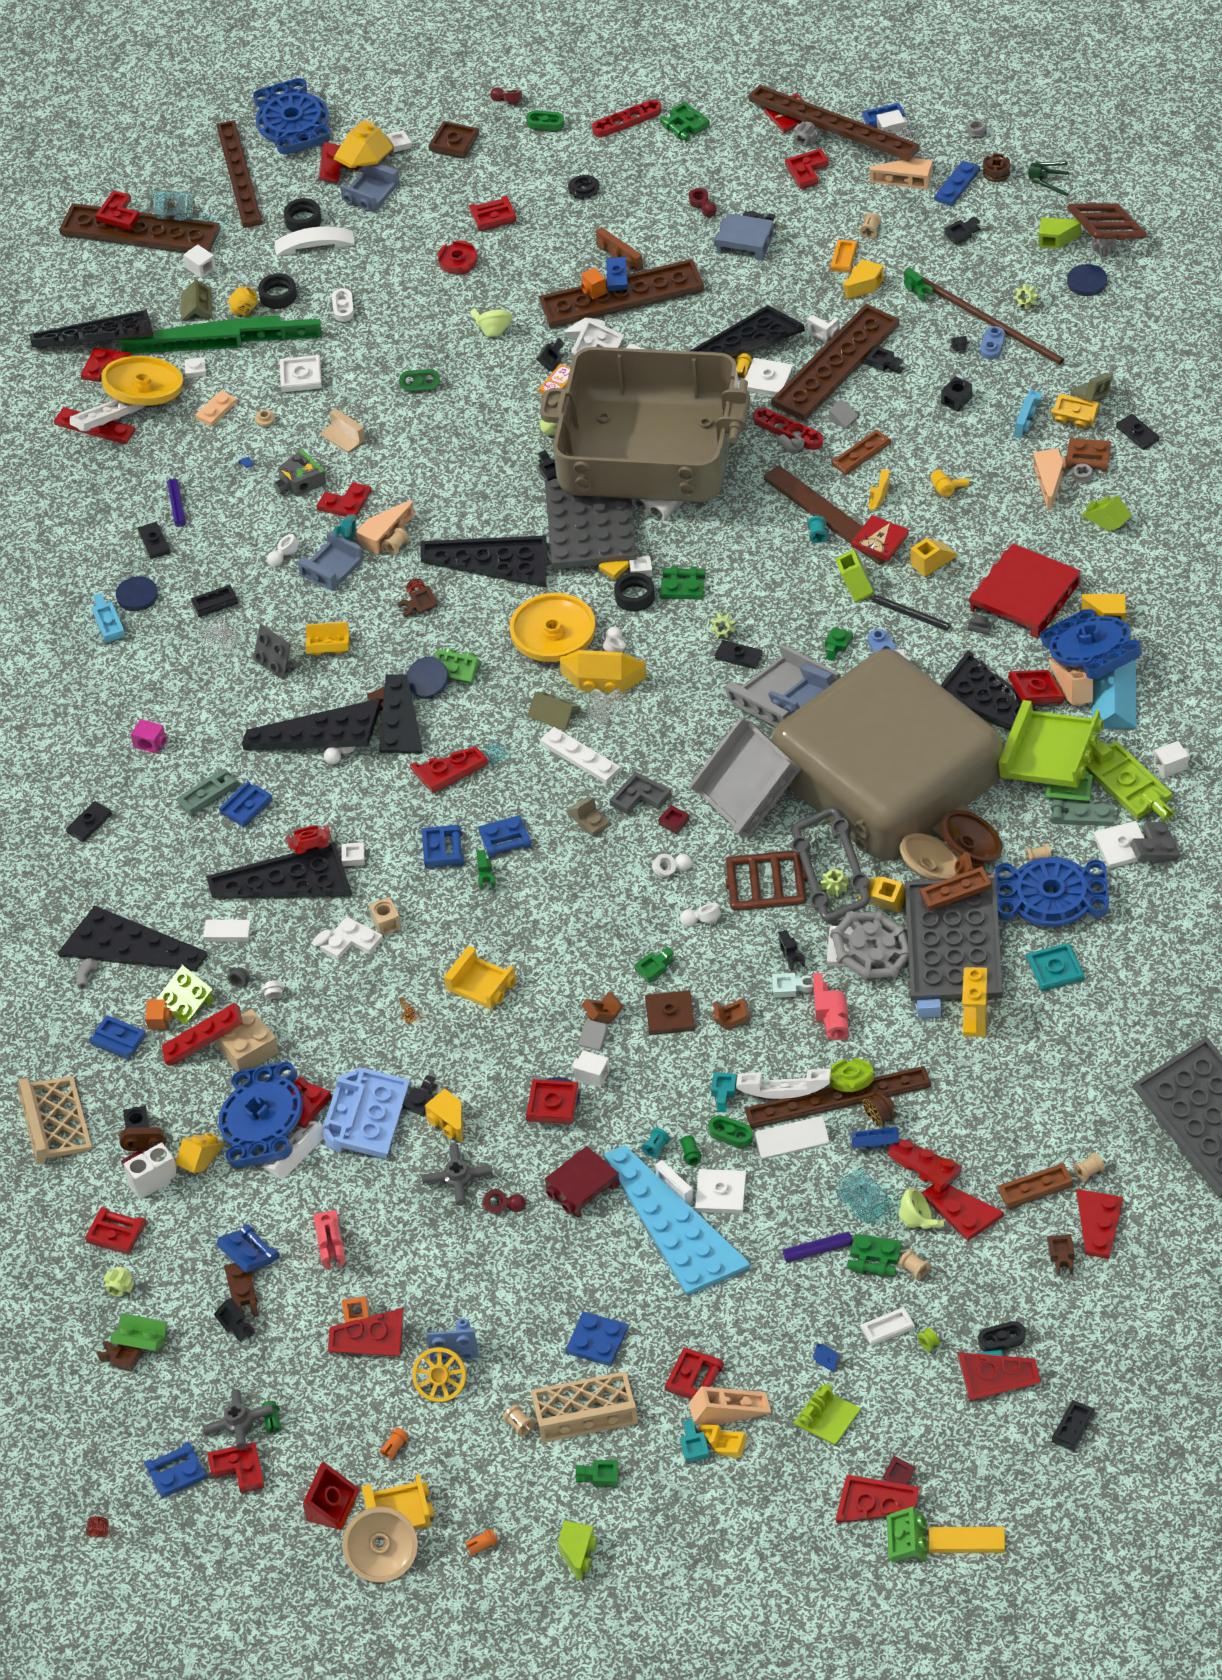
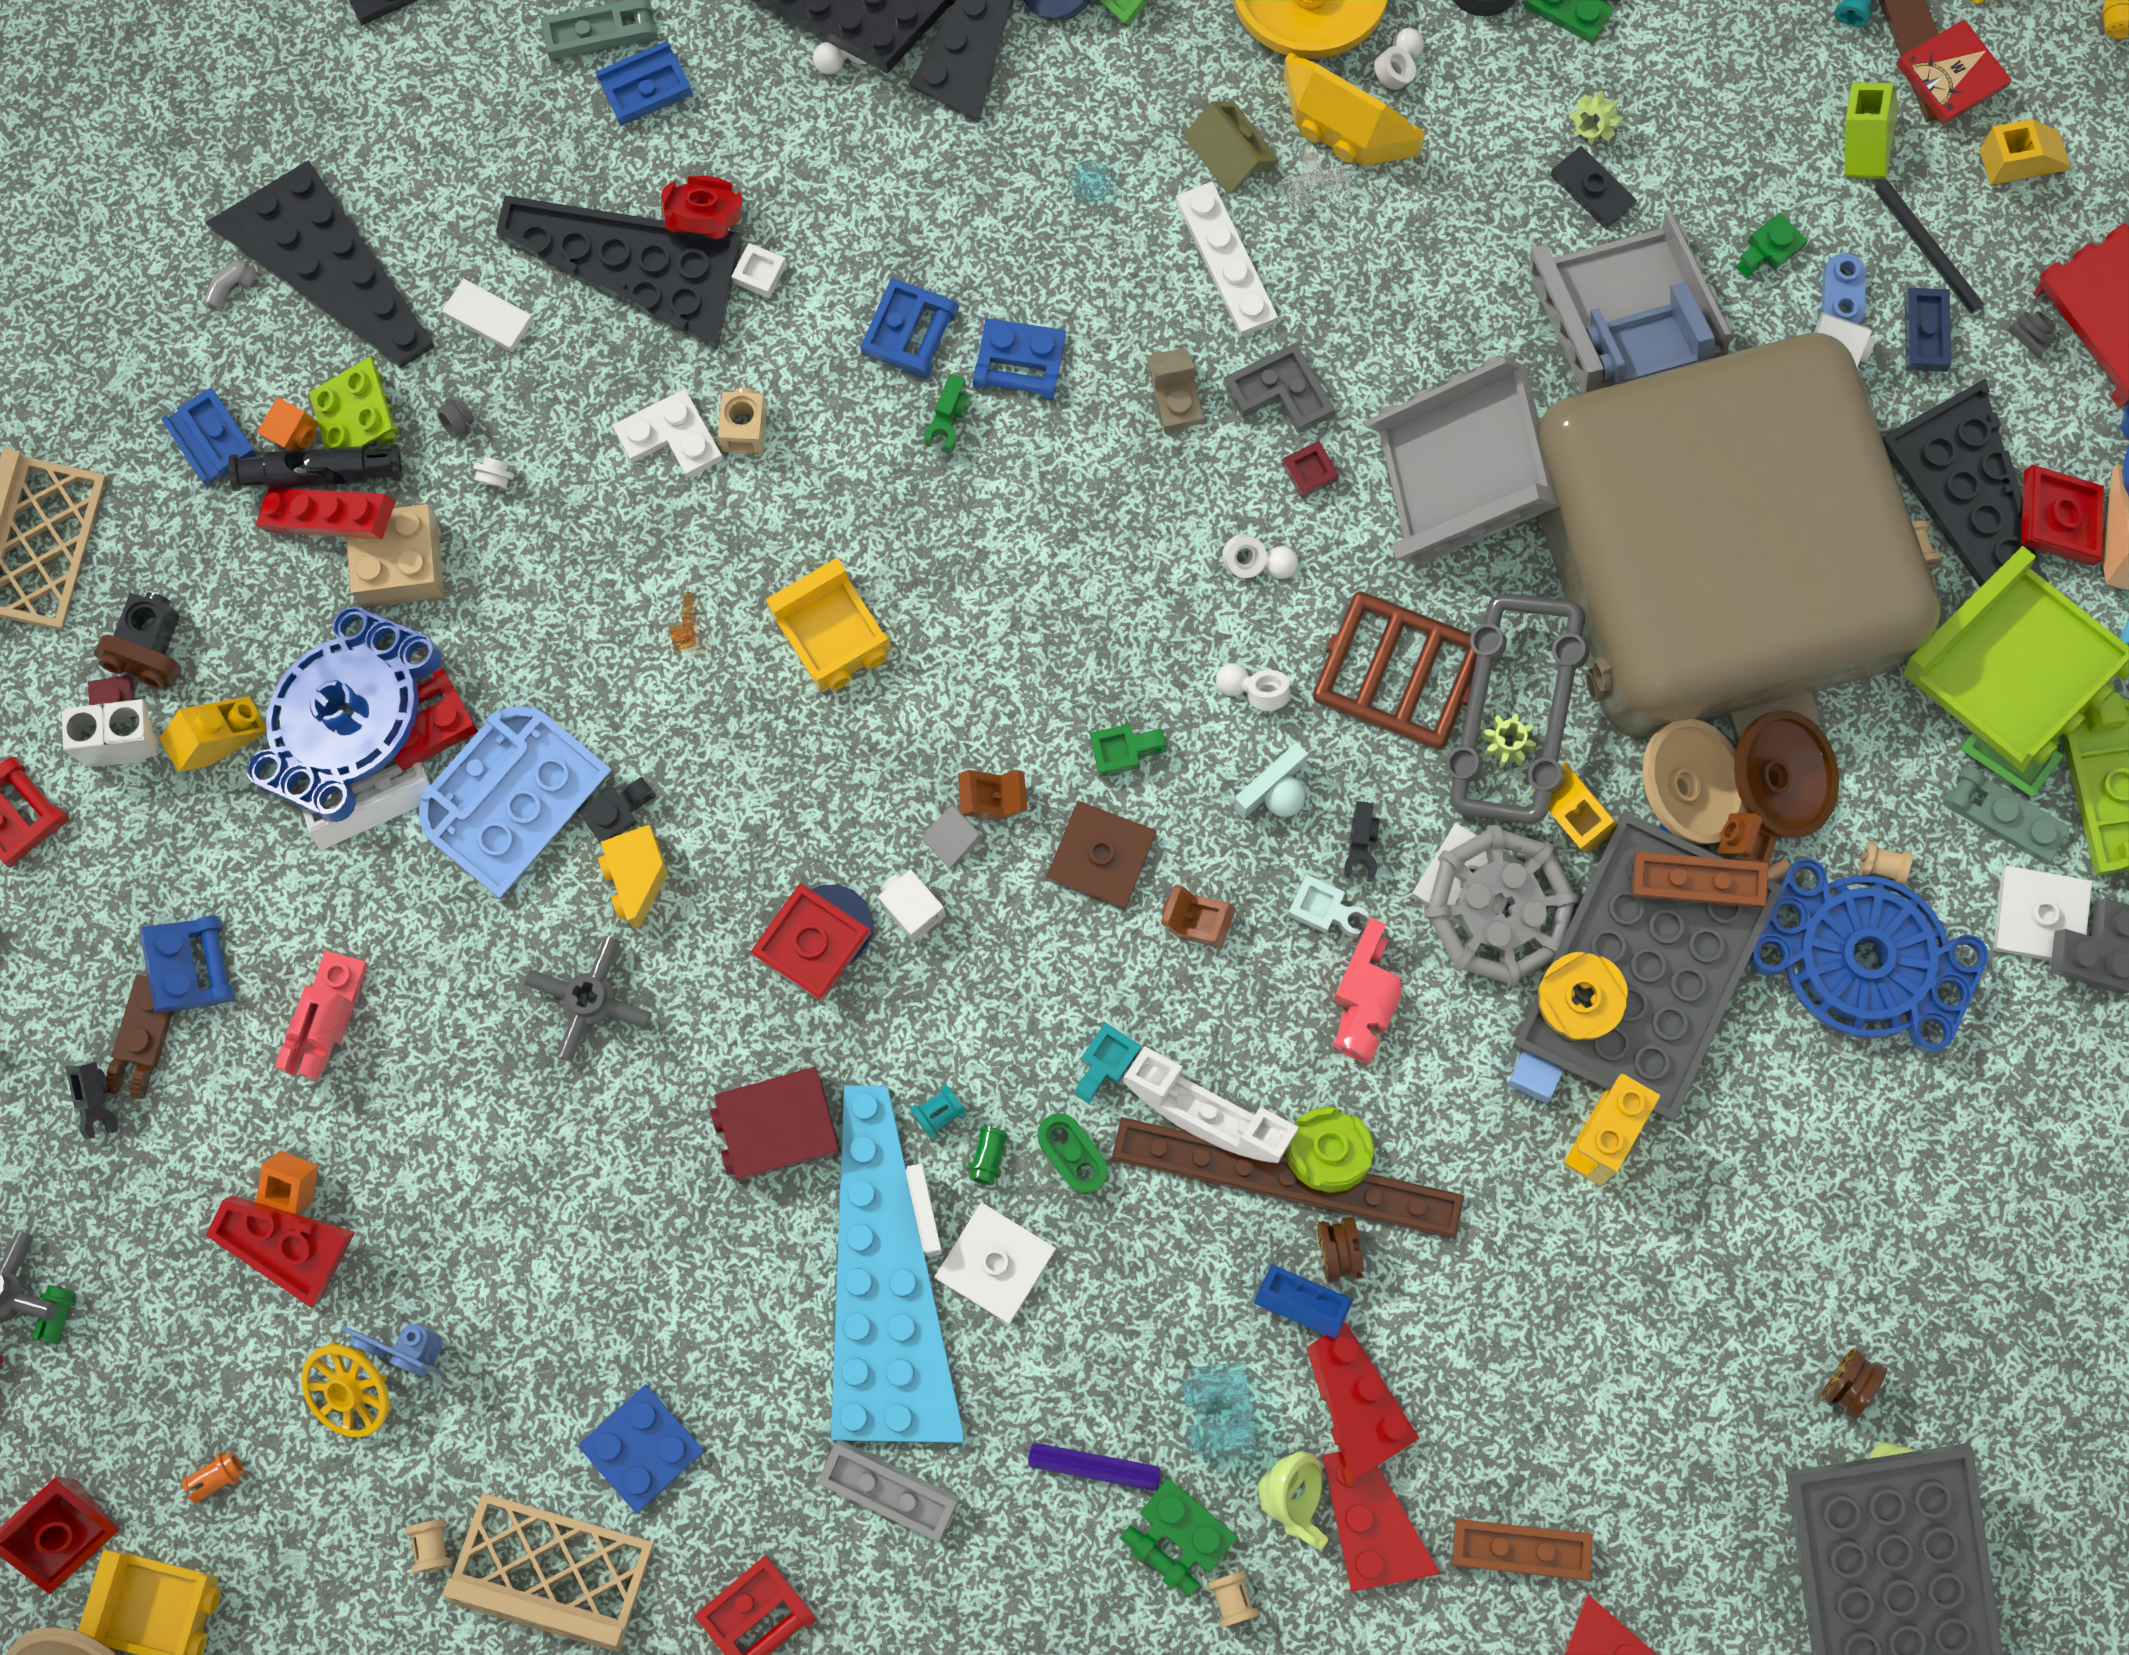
camera: 25 degrees right, 25 degrees up
(175, 1026) = (327, 466): none -> black piece
(321, 938) = (625, 409): white piece -> none
(445, 771) = (997, 179): red wing -> none
(515, 1202) = (655, 1102): dark red plate -> none
(726, 1297) = (888, 1490): none -> light grey plate
(736, 947) = (1276, 786): none -> light aqua tile
(791, 1137) = (1166, 1223): white slope -> none
(930, 643) = (1927, 329): none -> dark blue plate
(930, 970) = (1575, 1020): none -> yellow plate
(1055, 966) = (1794, 1107): teal tile -> none
(1089, 1167) = (1632, 1563): tan bush -> none
(1148, 1052) = (1854, 1383): none -> reddish brown wheel

